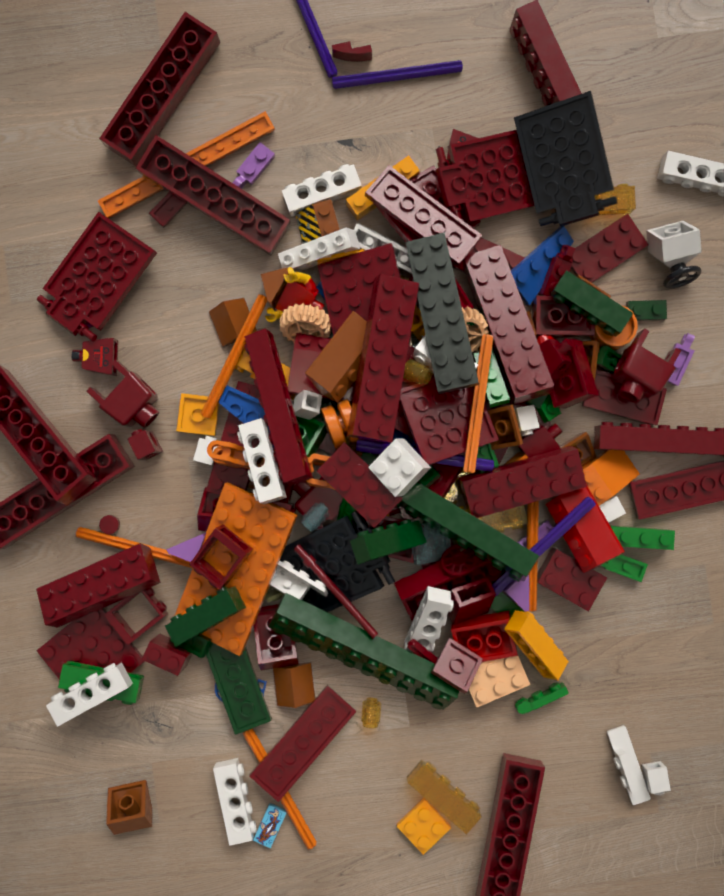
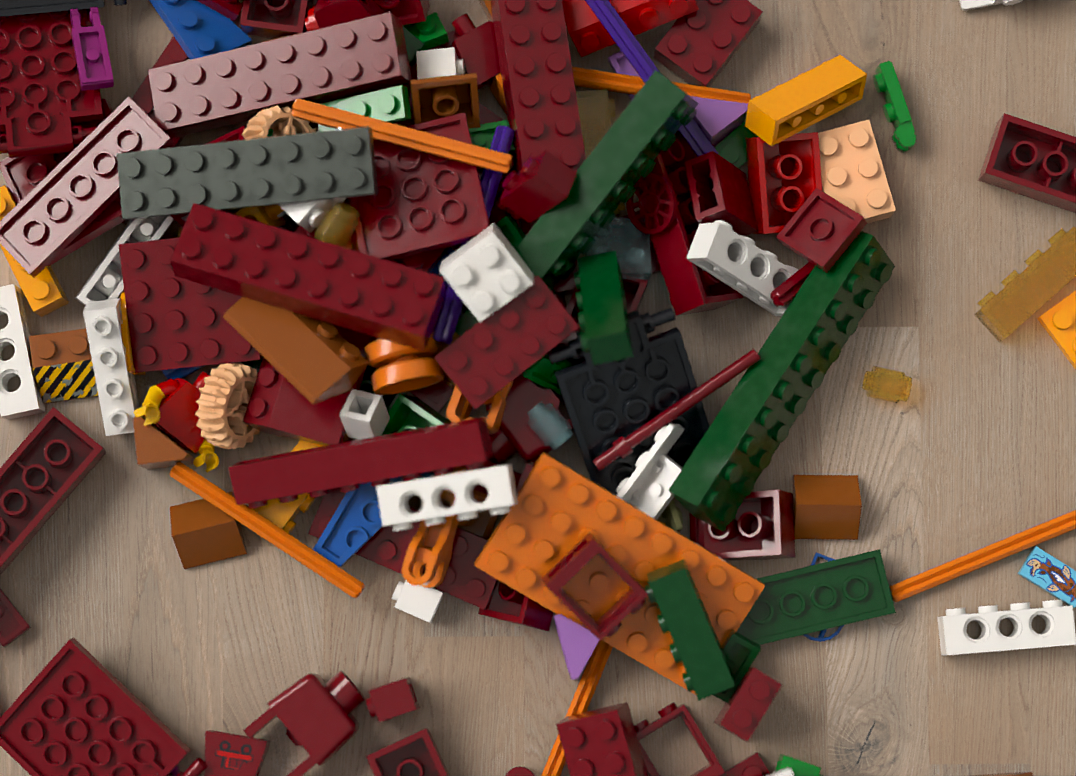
camera: 80 degrees left, 5 degrees down
(190, 416) = (356, 618): light orange plate -> none
(302, 743) = (922, 502): dark red plate -> none
(456, 490) = (536, 187): none -> dark red brick
(507, 209) = (91, 52): none -> magenta hinge

